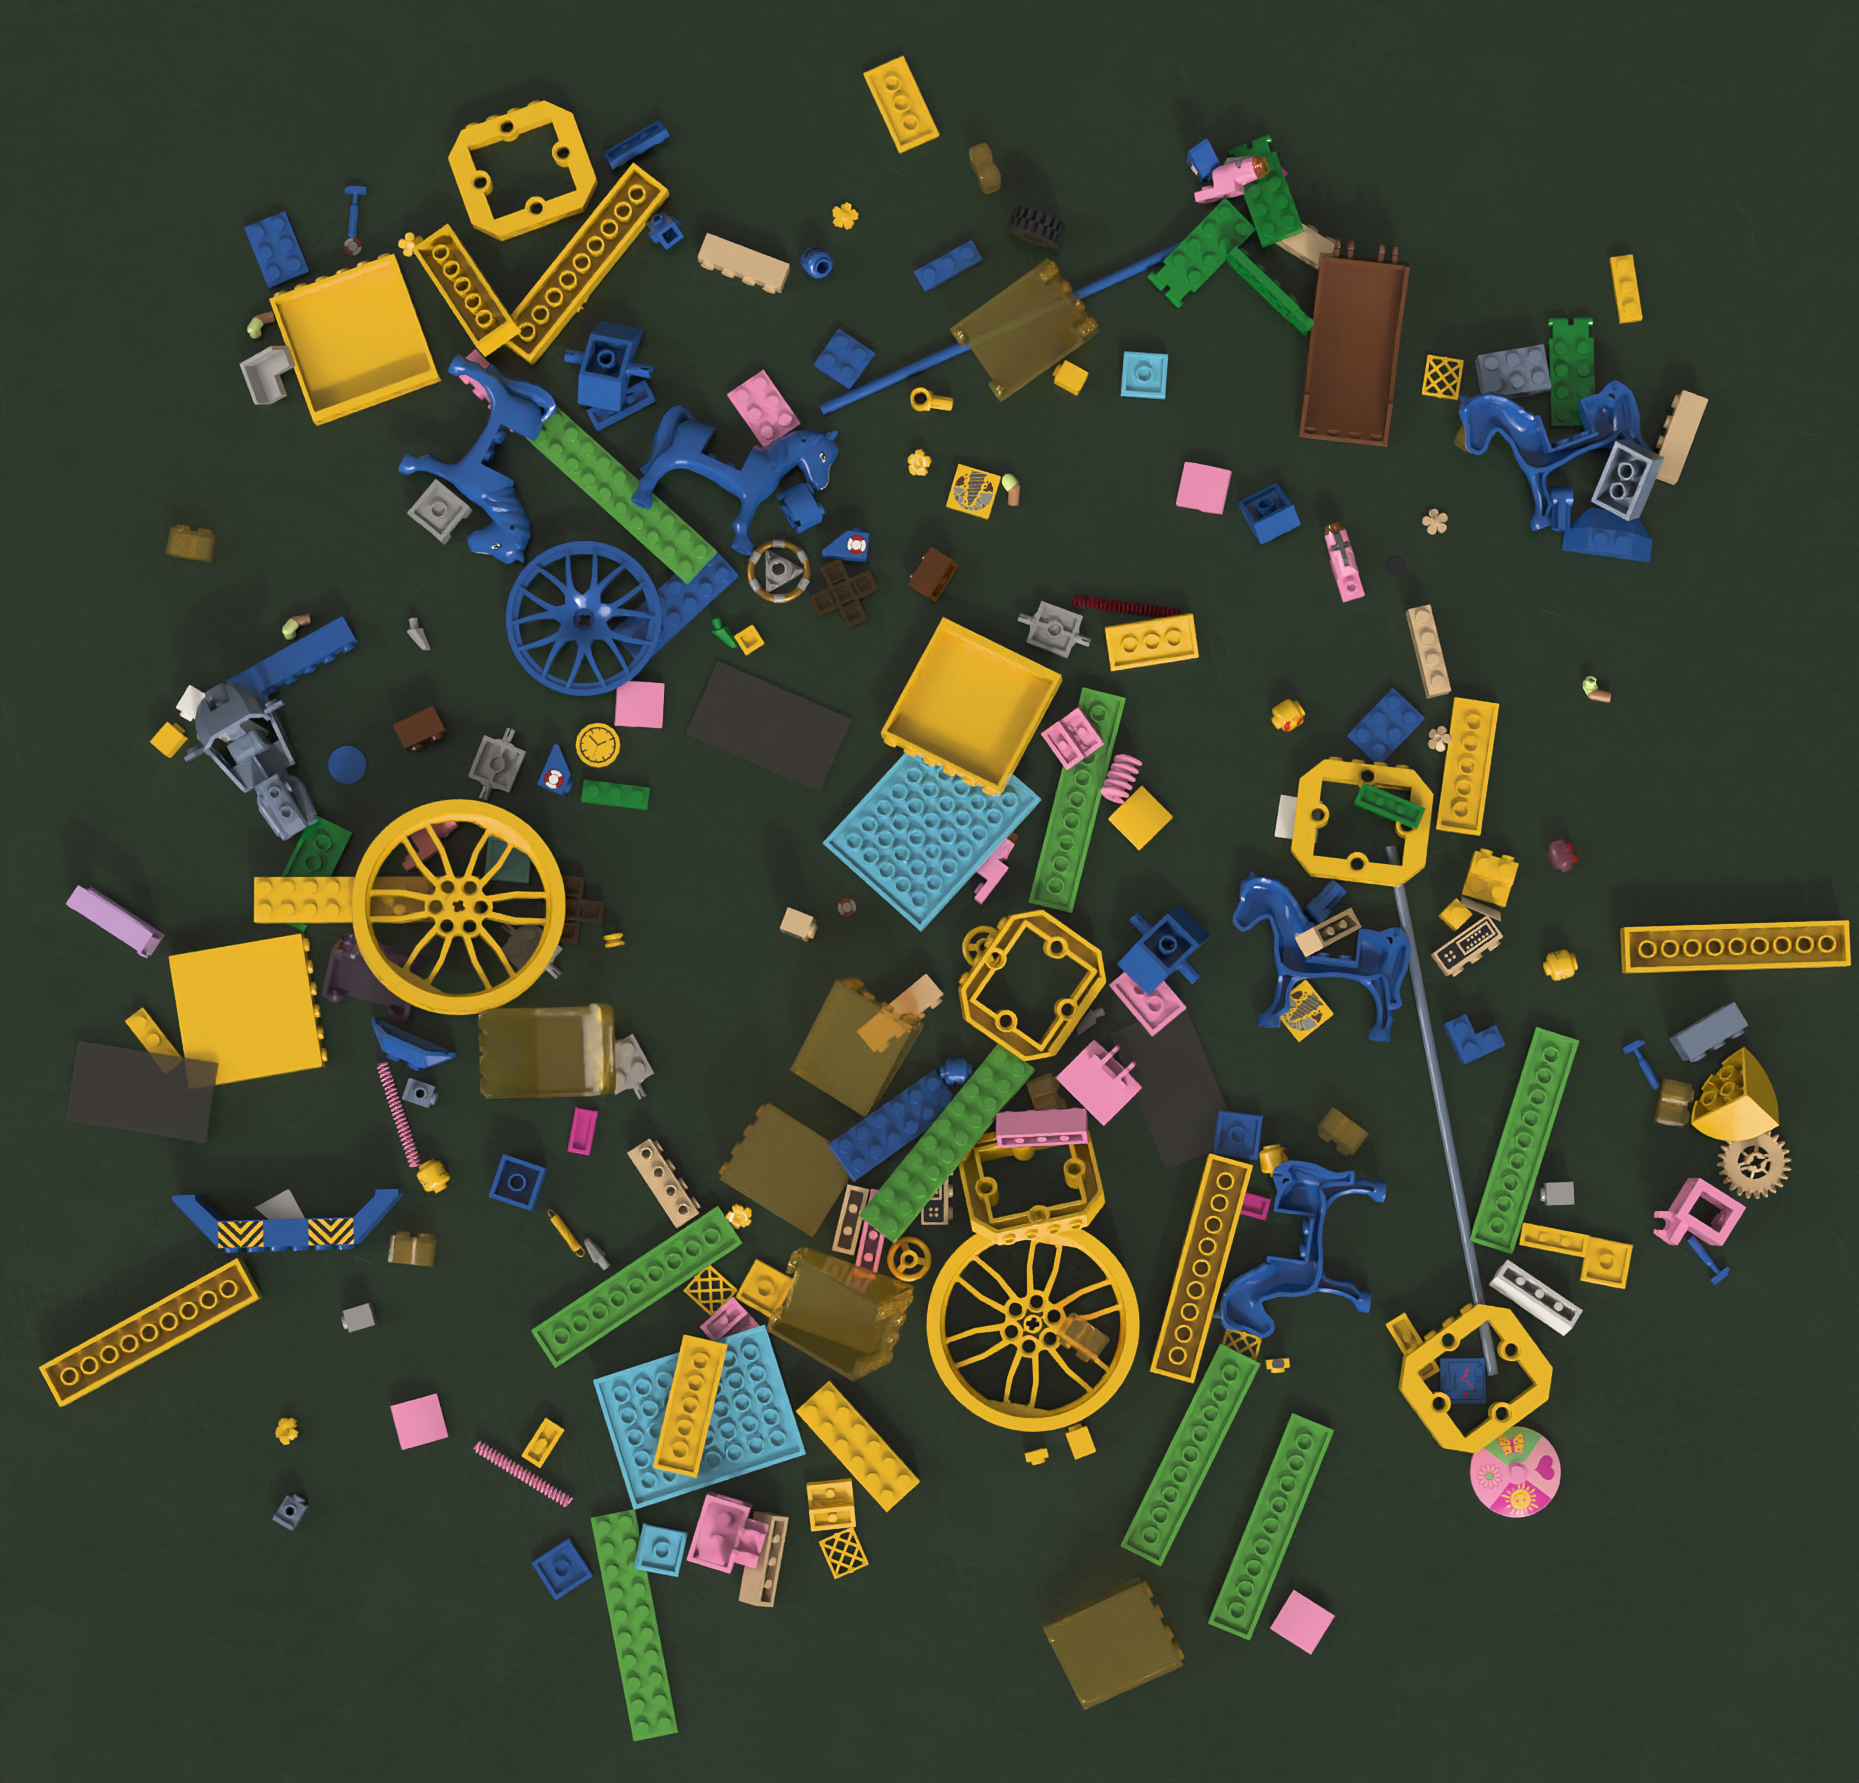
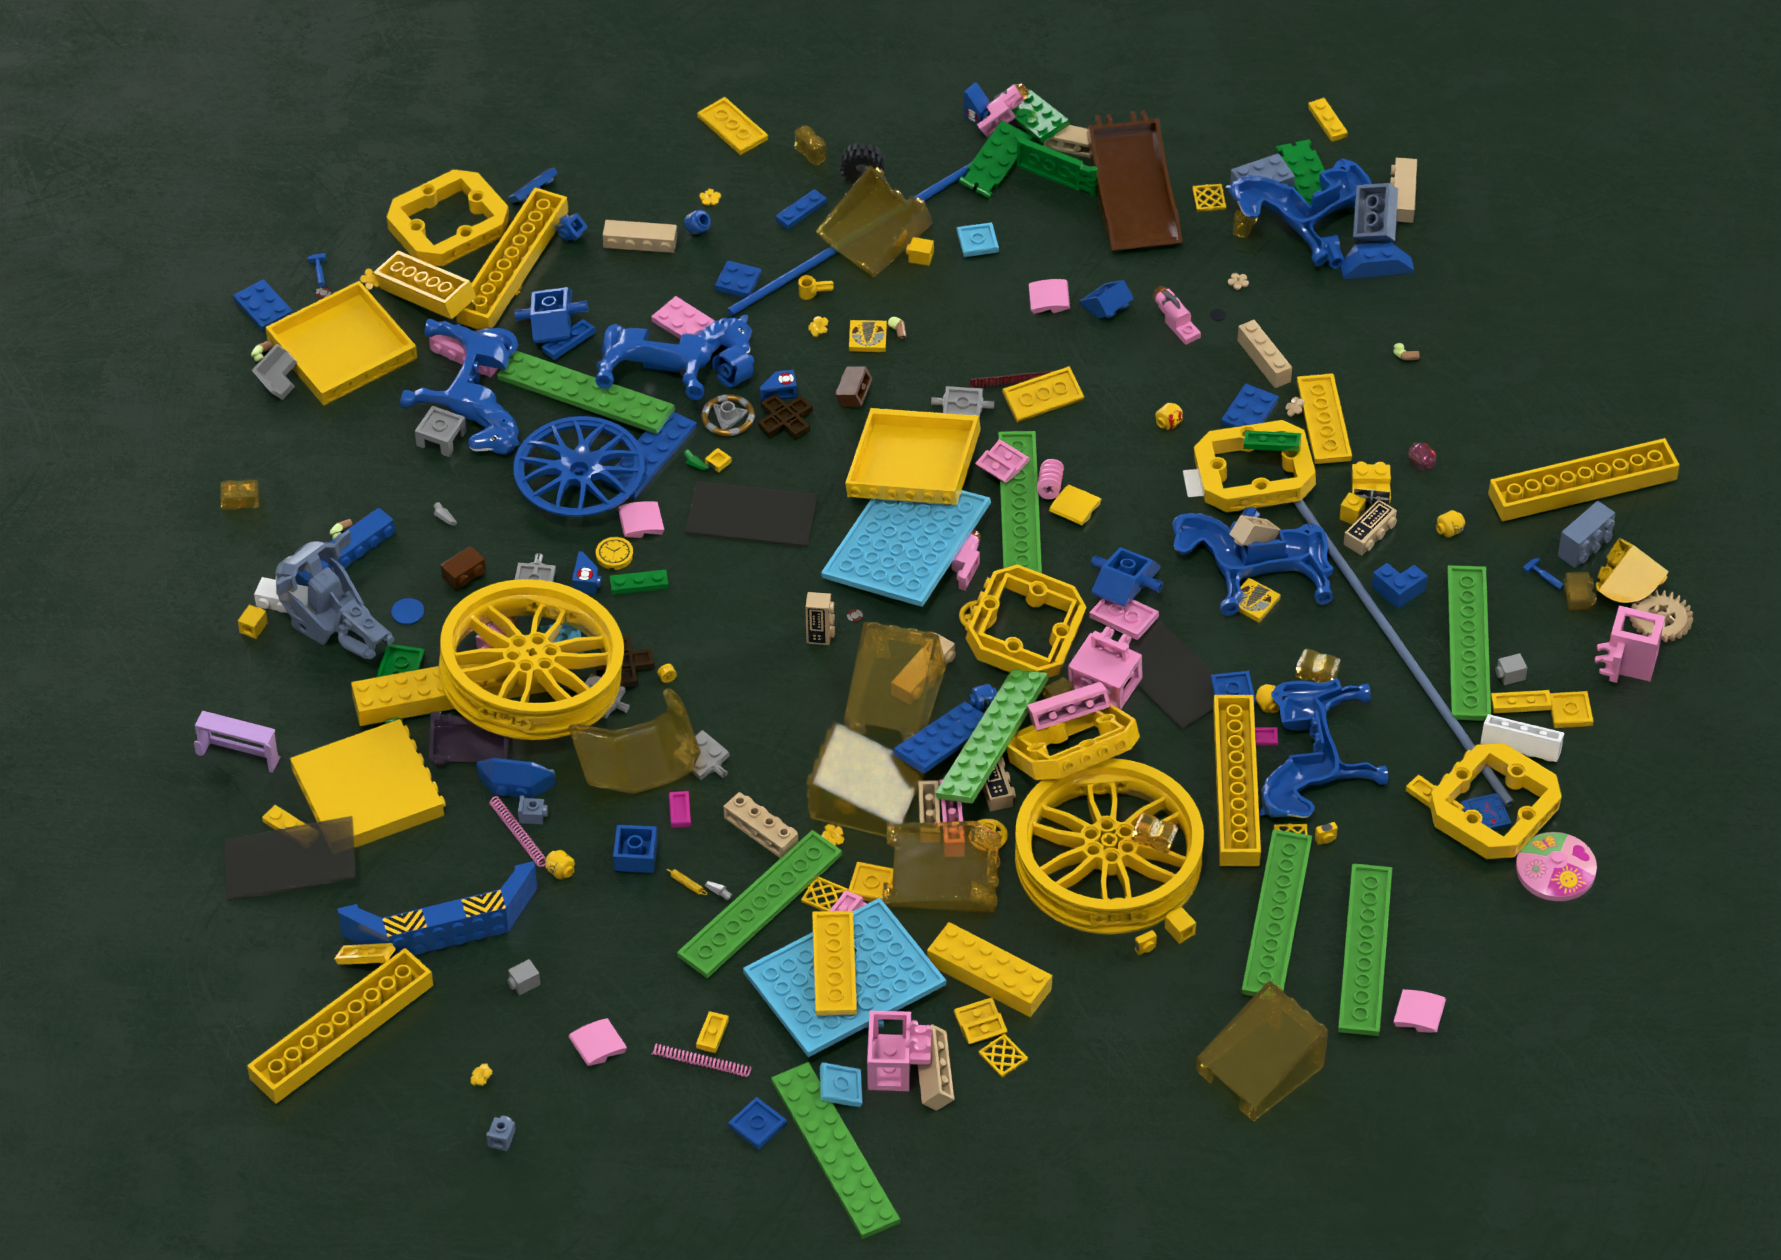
camera: 20 degrees left, 35 degrees down
(195, 1246) = (365, 953): none -> yellow plate
(412, 1250) = (556, 920): clear yellow brick -> none
(1089, 1019) = (1079, 642): light grey bar -> none
(1708, 1260) = (1653, 689): blue piece -> none

